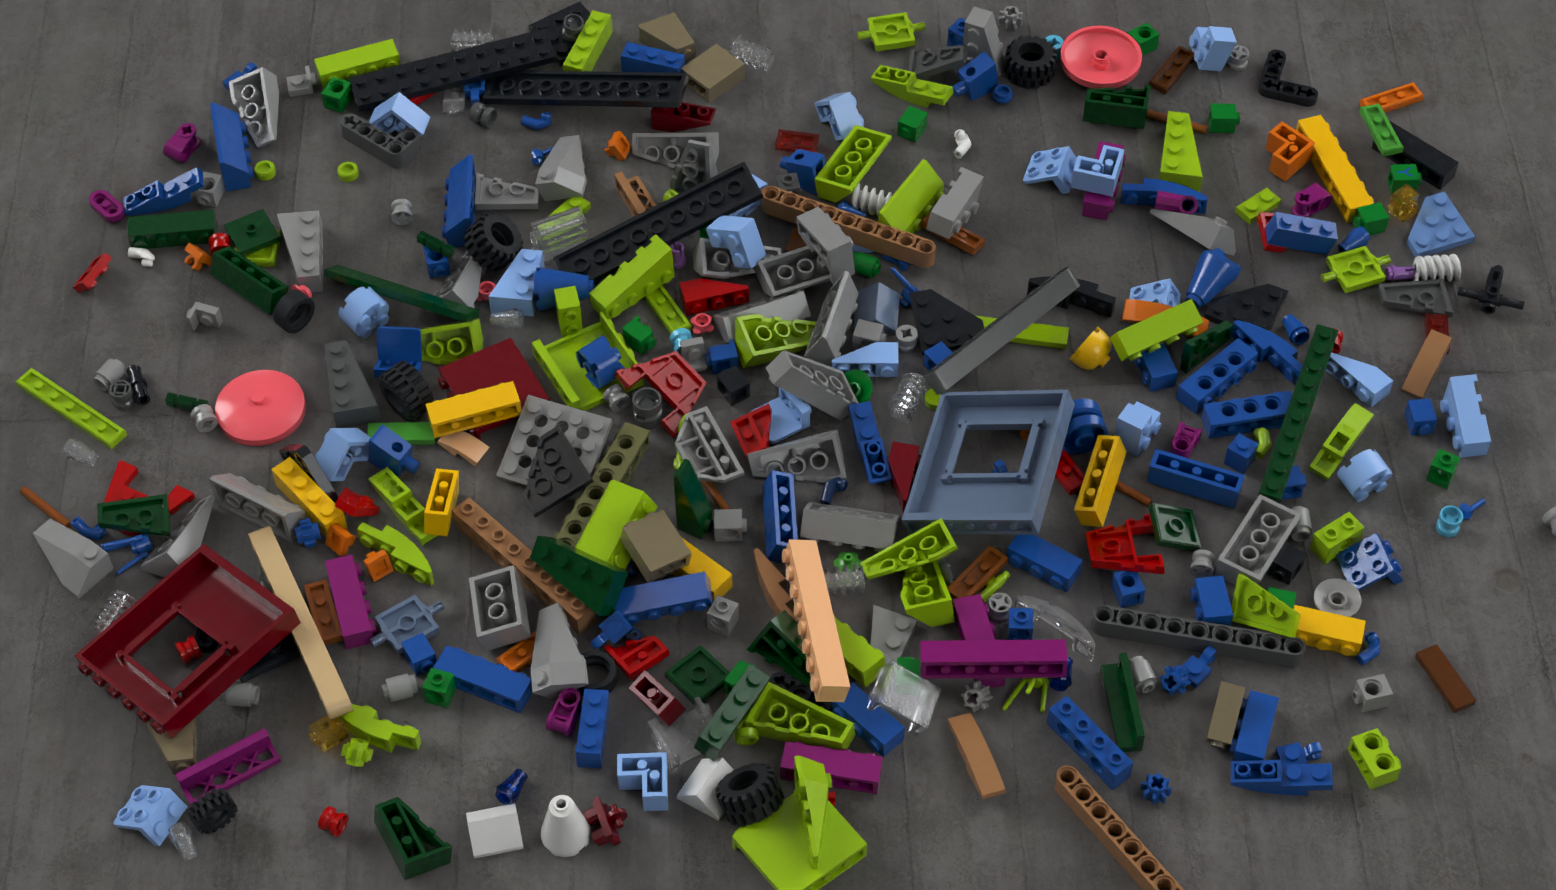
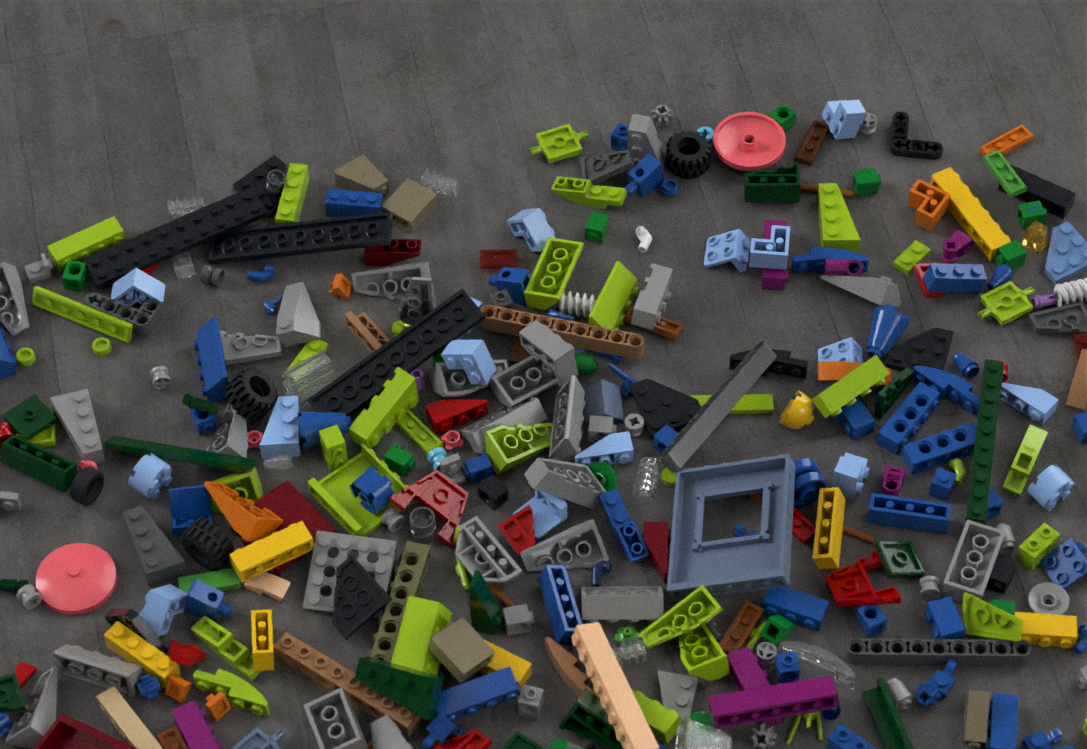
camera: 10 degrees left, 0 degrees up
(335, 135) = (82, 314): none -> lime tile
(451, 364) = (242, 514): none -> orange wedge
(475, 90) = (199, 253): blue plate -> none
(1017, 581) = (777, 629): none -> green brick

